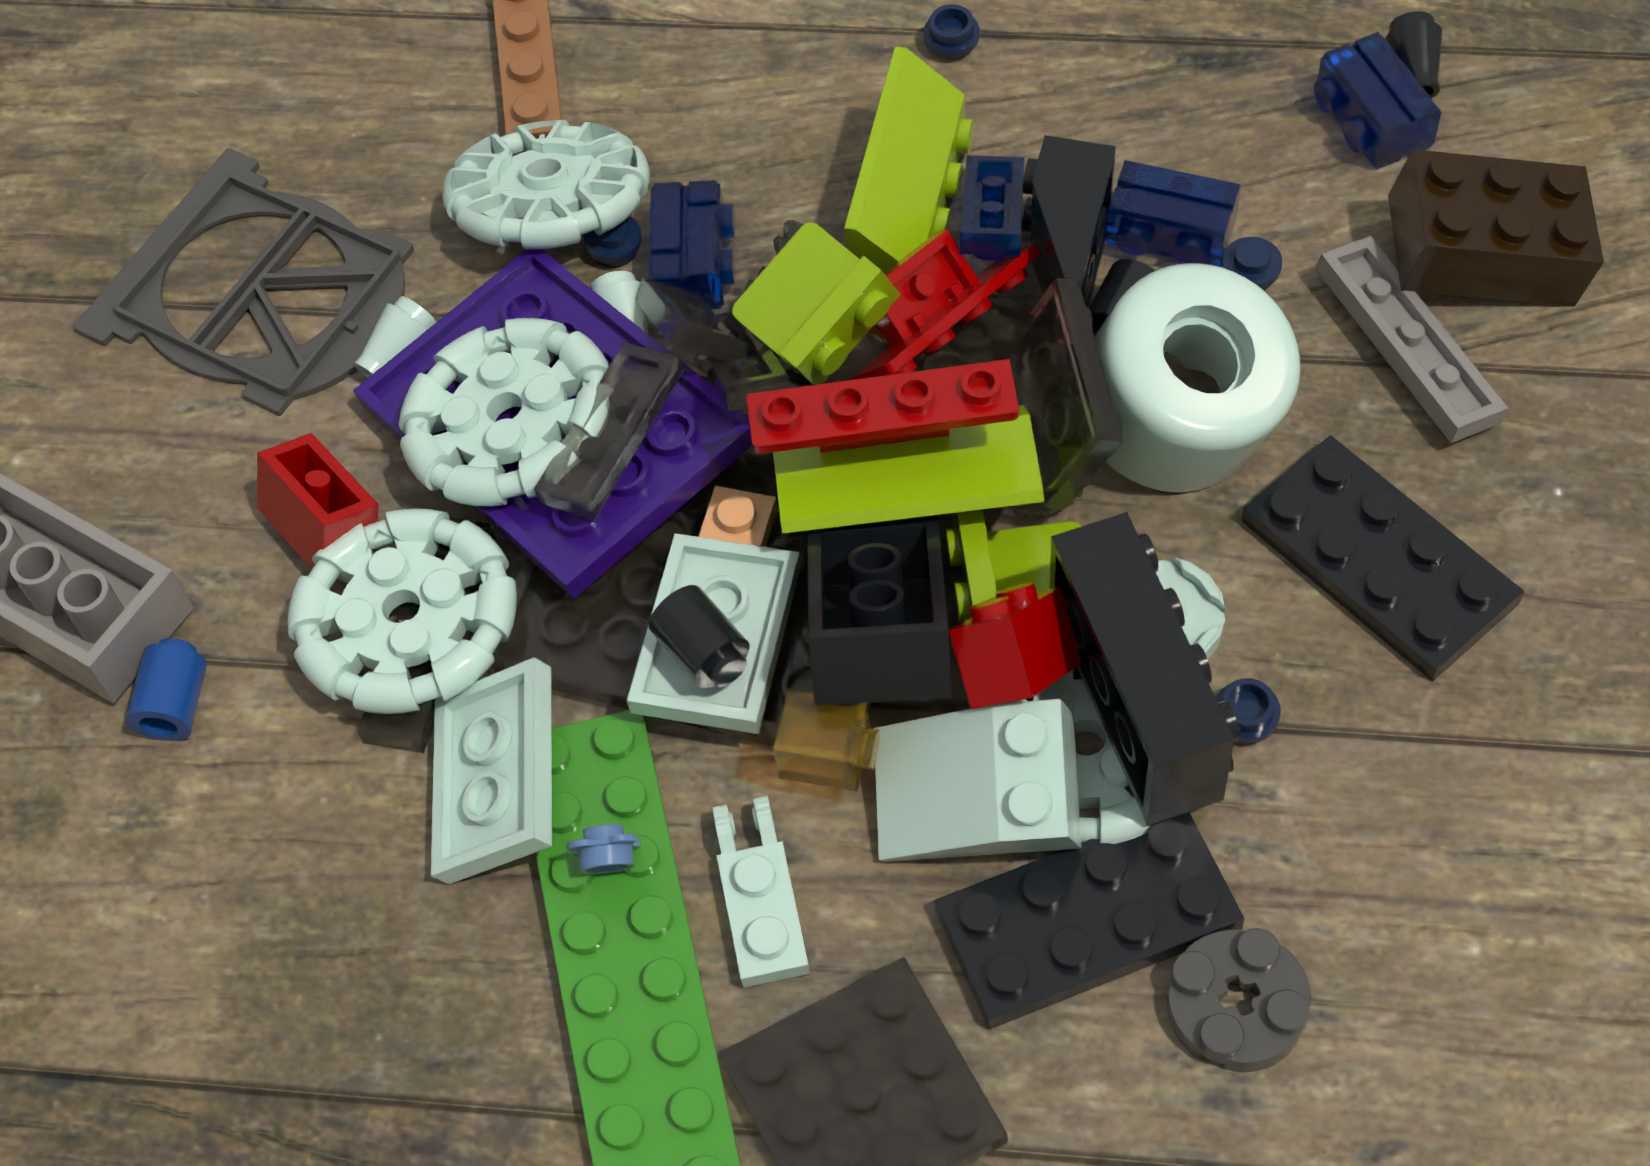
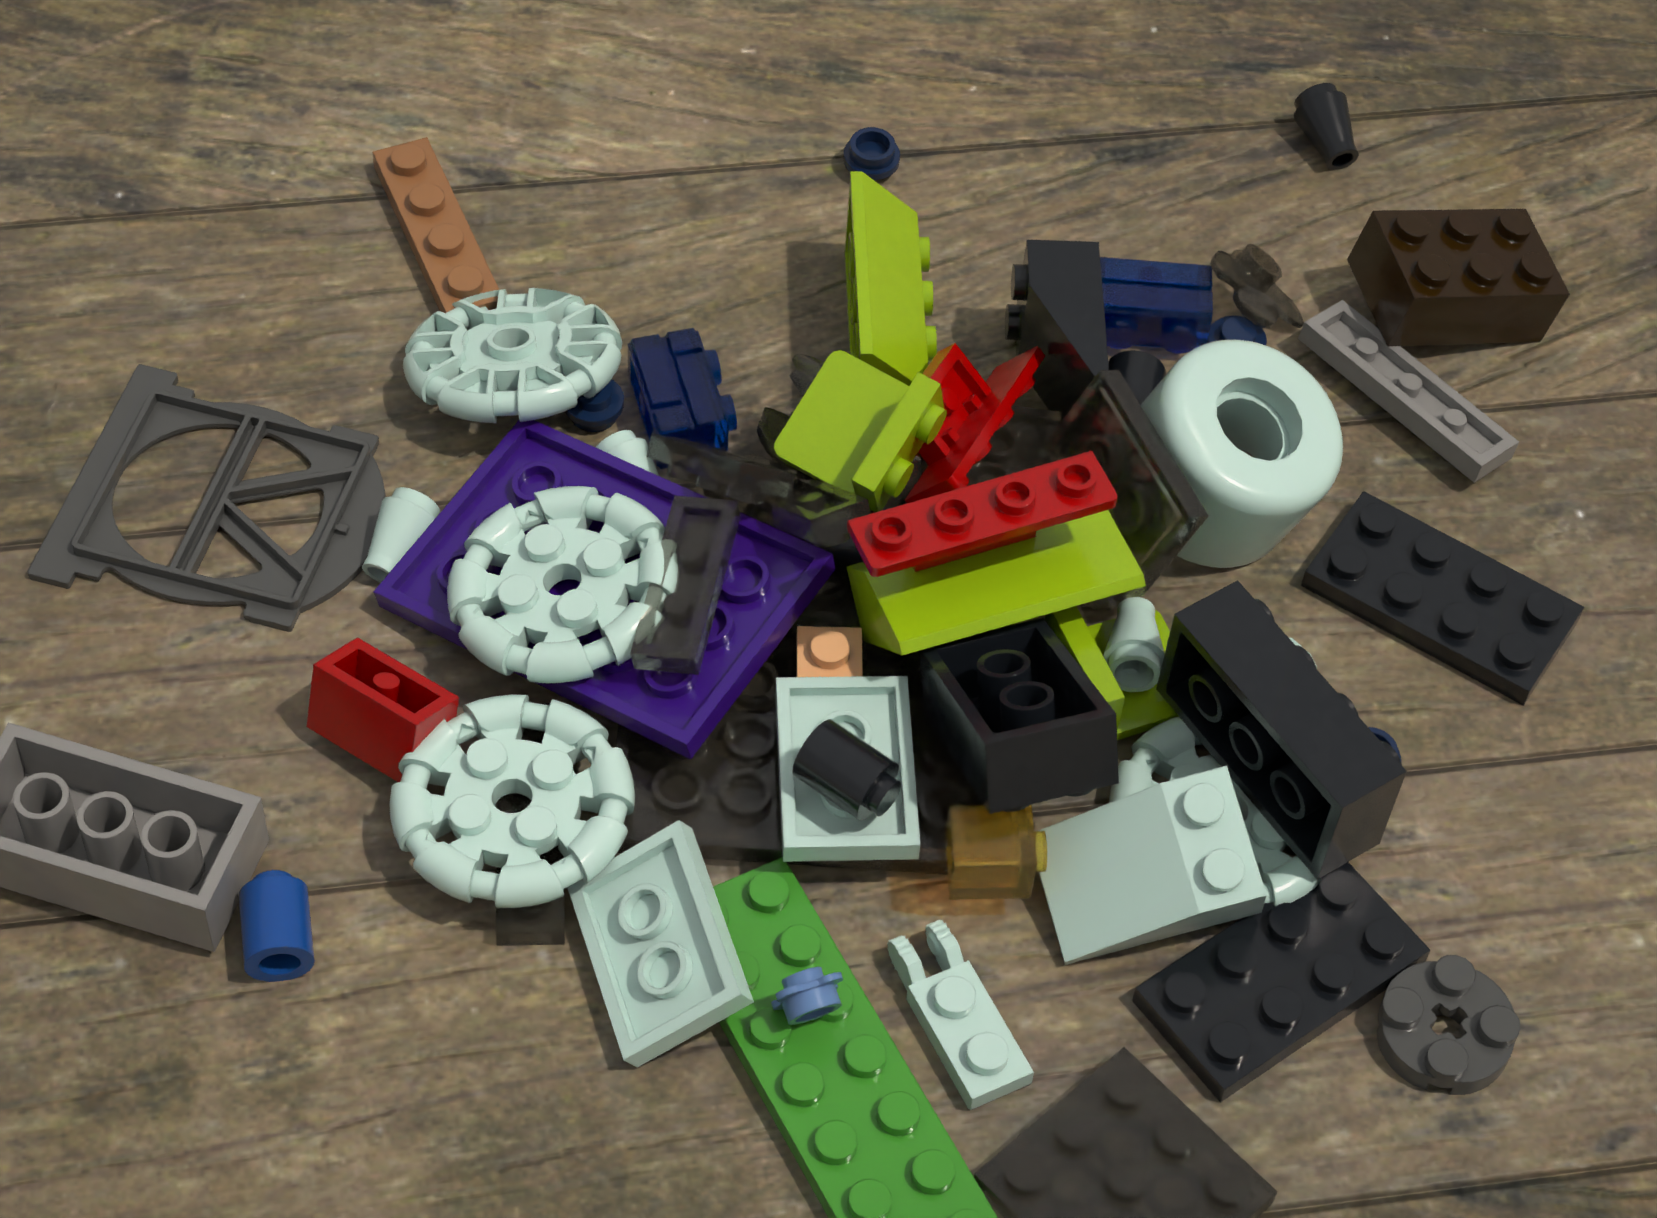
camera: 25 degrees left, 5 degrees down
(992, 207) = (980, 318): clear blue plate -> none
(1014, 645) = (1162, 725): red brick -> none
(1031, 554) = (1135, 646): none -> light aqua cone
(1285, 210) = (1254, 280): none -> clear smoke plate
(1376, 101) = (1306, 172): clear blue brick -> none

